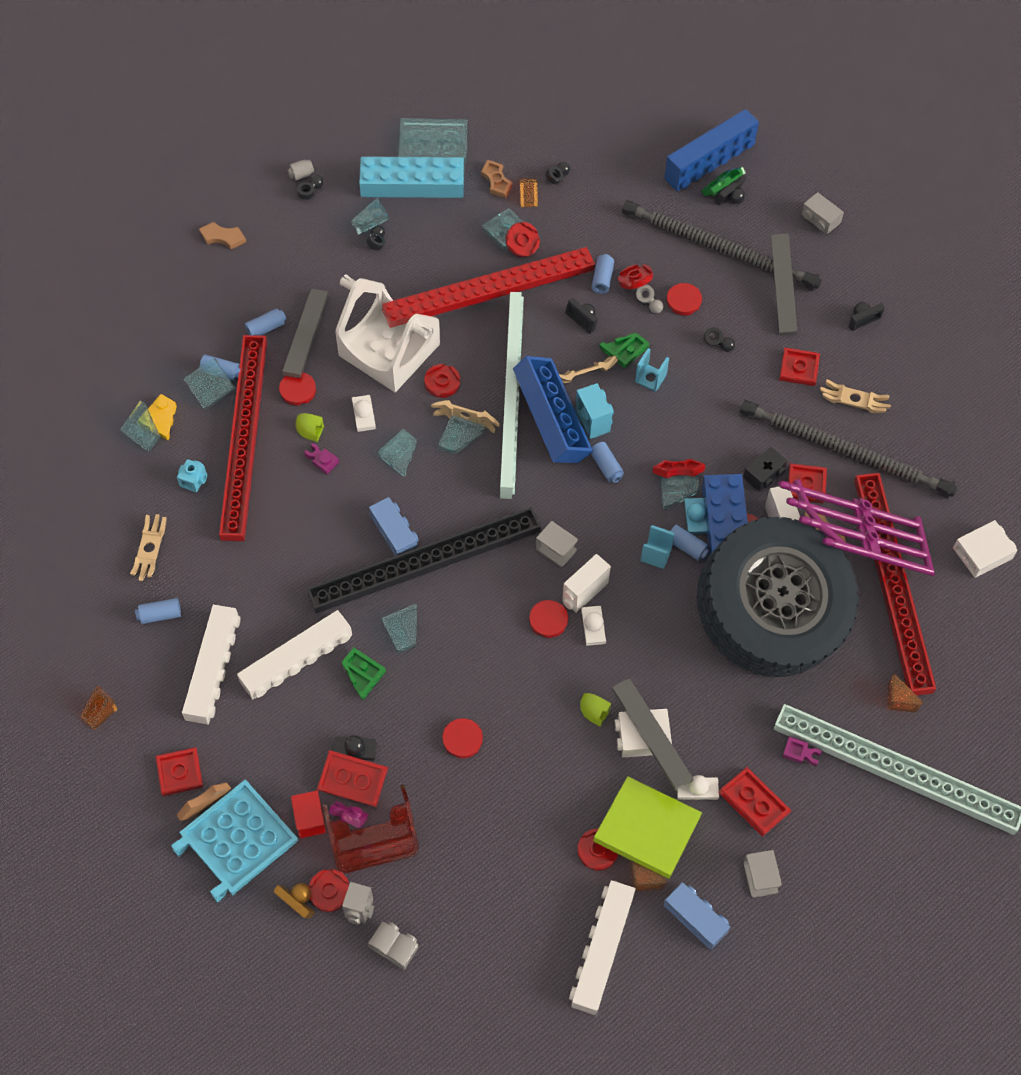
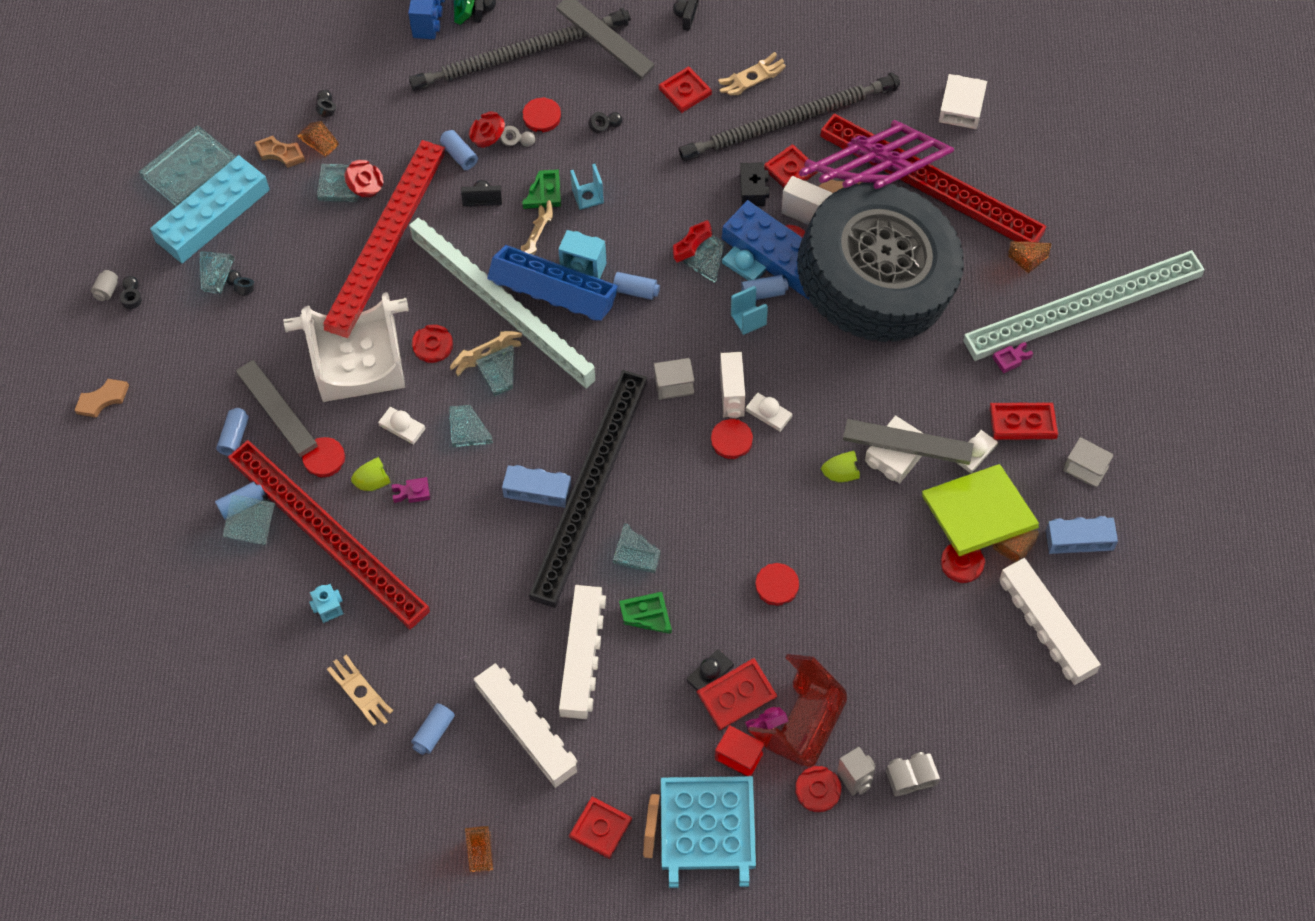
camera: 45 degrees left, 0 degrees up
(141, 427) = (233, 608): clear light blue wing -> none
(162, 415) = (235, 587): yellow wing -> none
(296, 898) = (805, 814): pearl gold tile -> none

